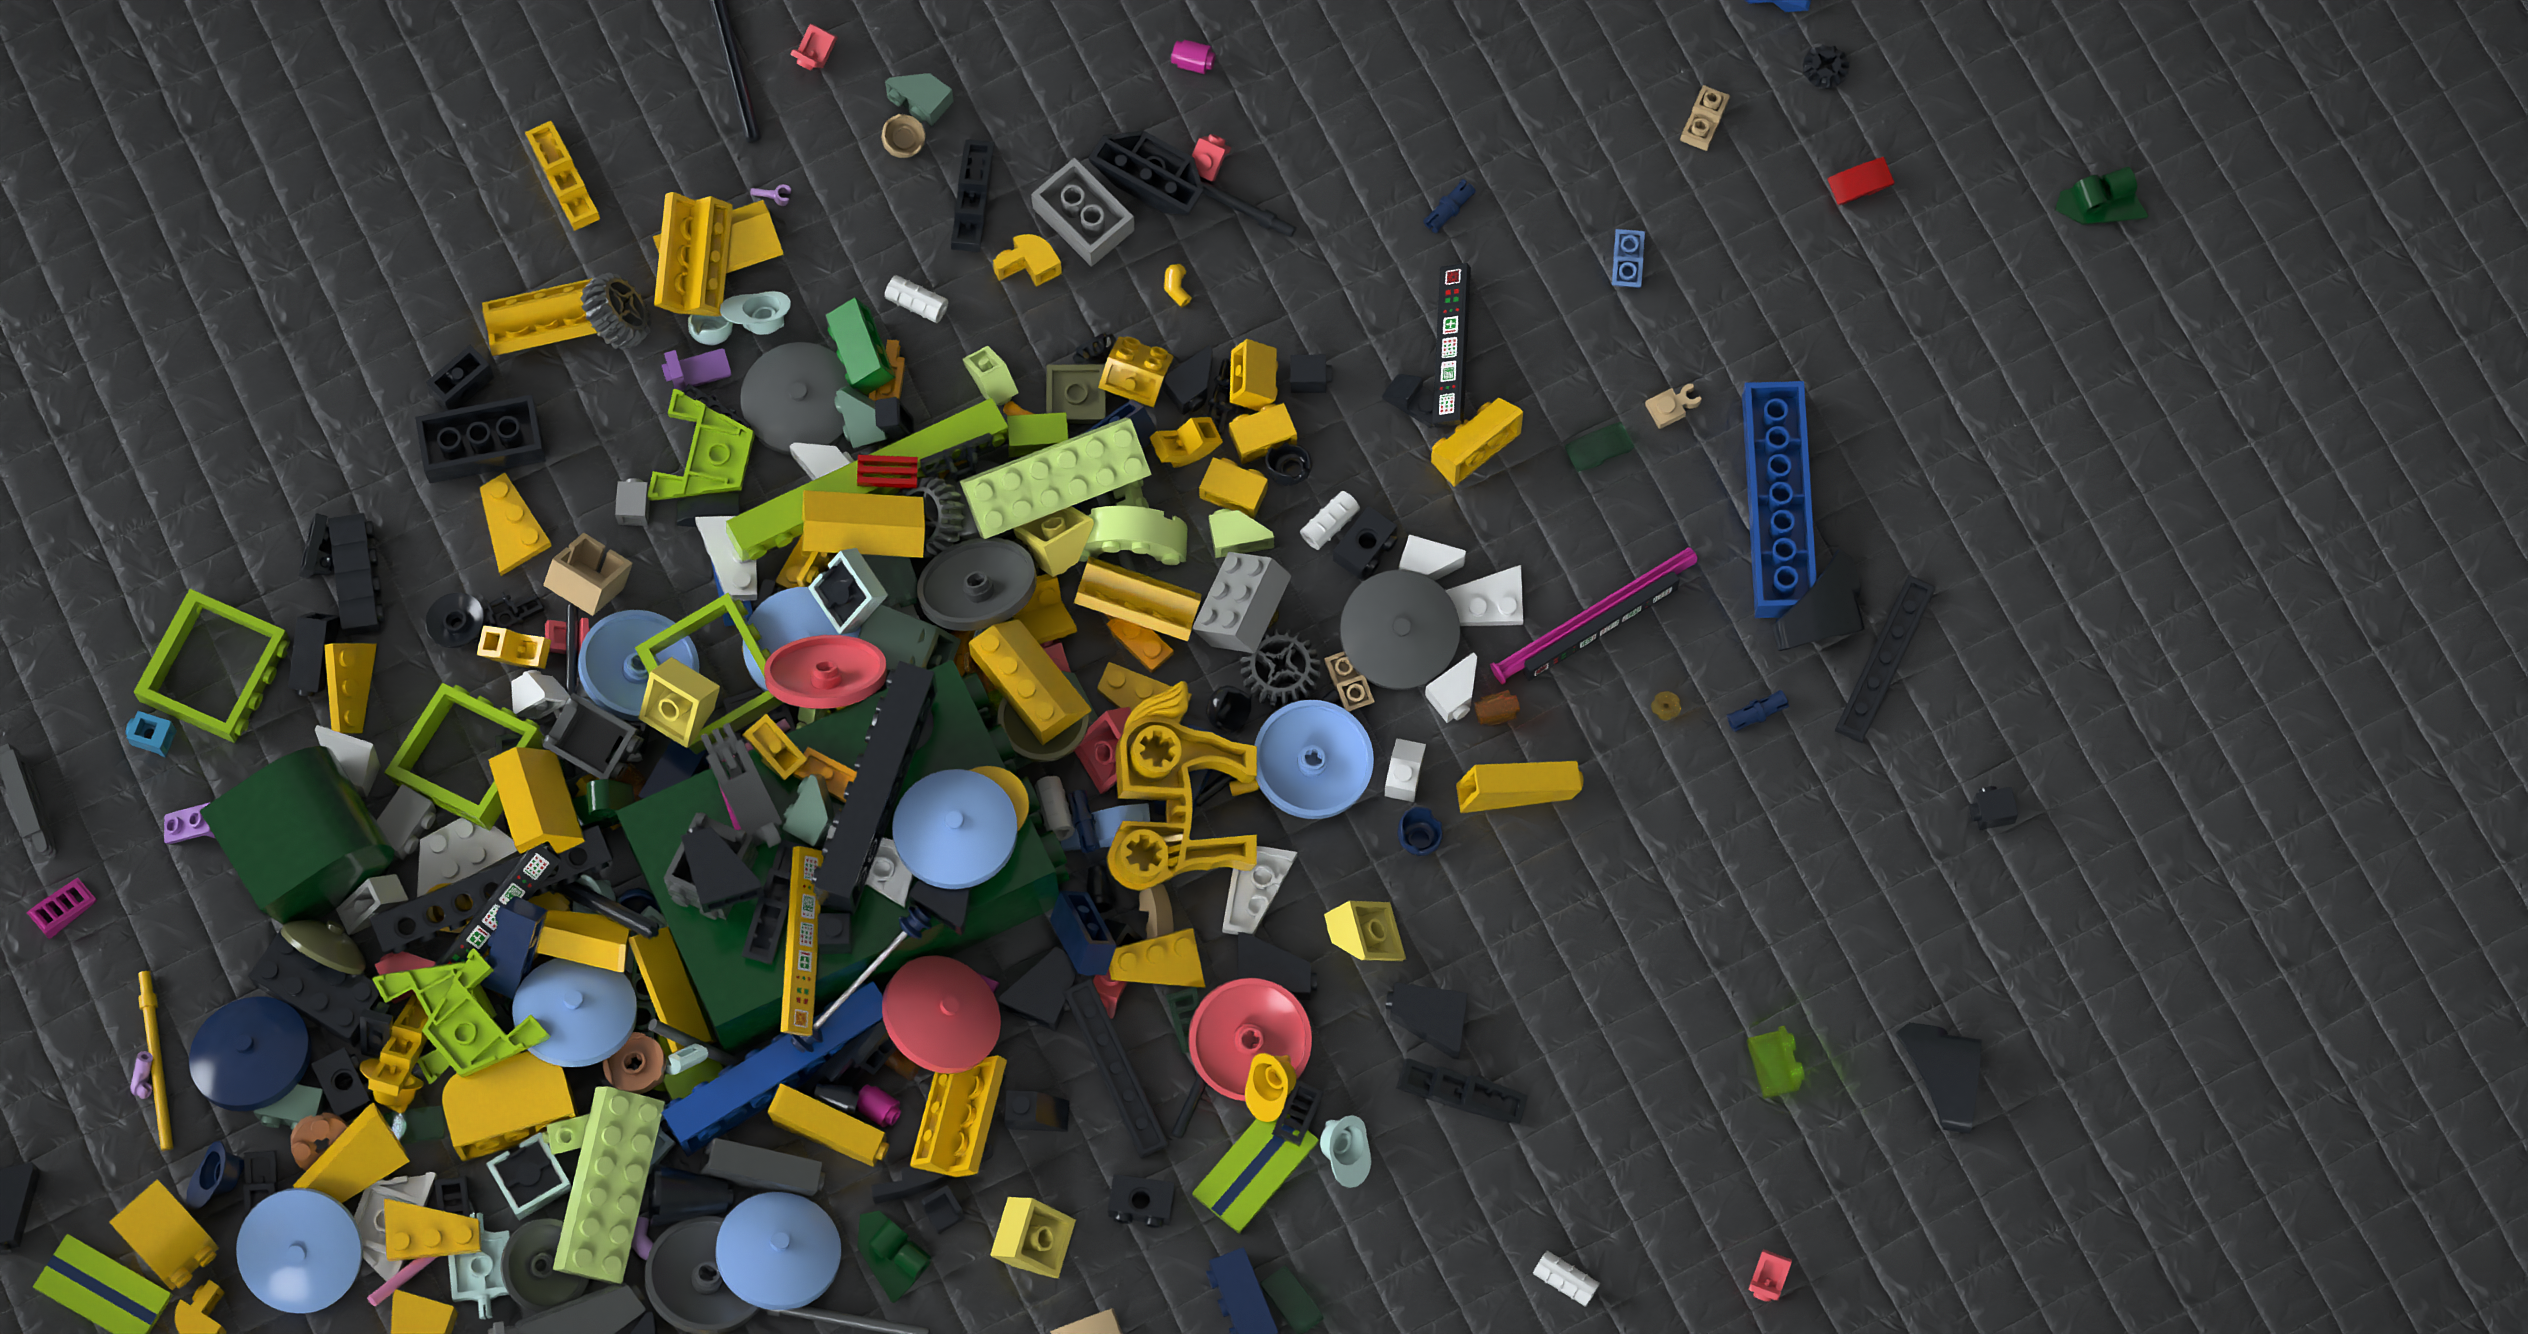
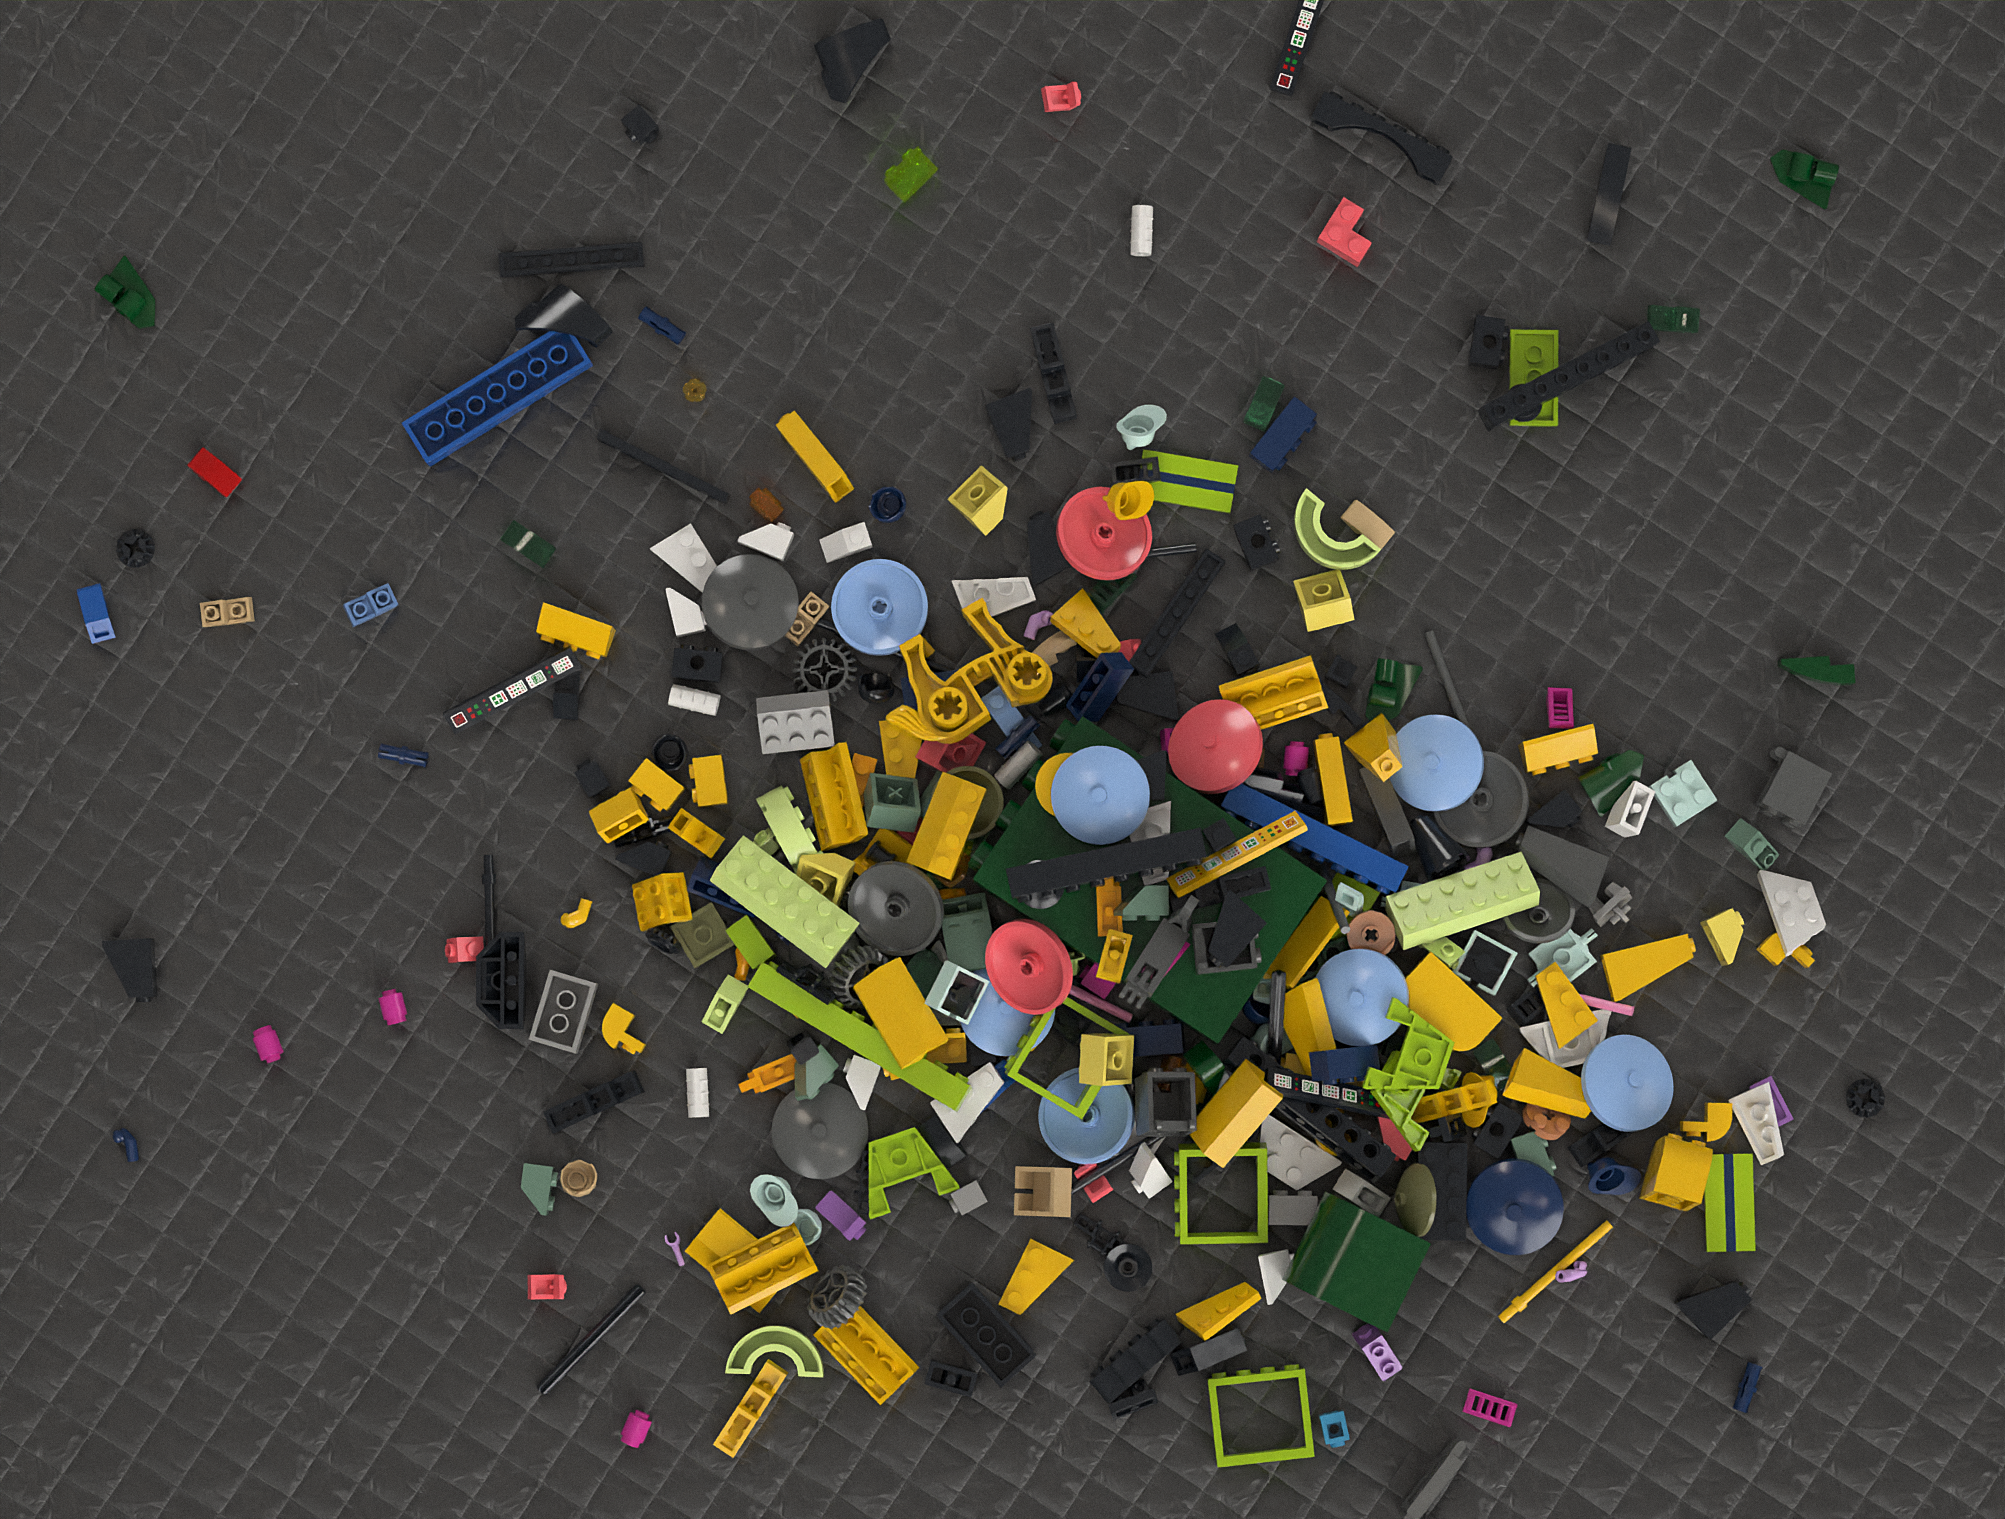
camera: 120 degrees left, 15 degrees up
(513, 647) = (1123, 1210): yellow brick -> none
(609, 238) = (779, 1339): none -> yellowish green brick
(615, 55) = (635, 1428): none -> dark pink brick
(831, 1188) = (1376, 748): none -> yellow slope
(859, 346) = (760, 1107): brick -> none
(877, 461) = (839, 1004): red tile -> none
(912, 927) = (1182, 788): axle -> none
(1044, 608) = (879, 854): none -> black bush
(1093, 649) = (892, 802): none -> sand green brick
(1095, 1264) = (1321, 547): none -> yellowish green brick
(1198, 917) = (1037, 621): none -> lavender arm
(1237, 533) = (742, 759): yellowish green slope -> none
(1516, 661) = (656, 477): dark pink axle -> none
(1669, 407) = (467, 513): tan plate -> none

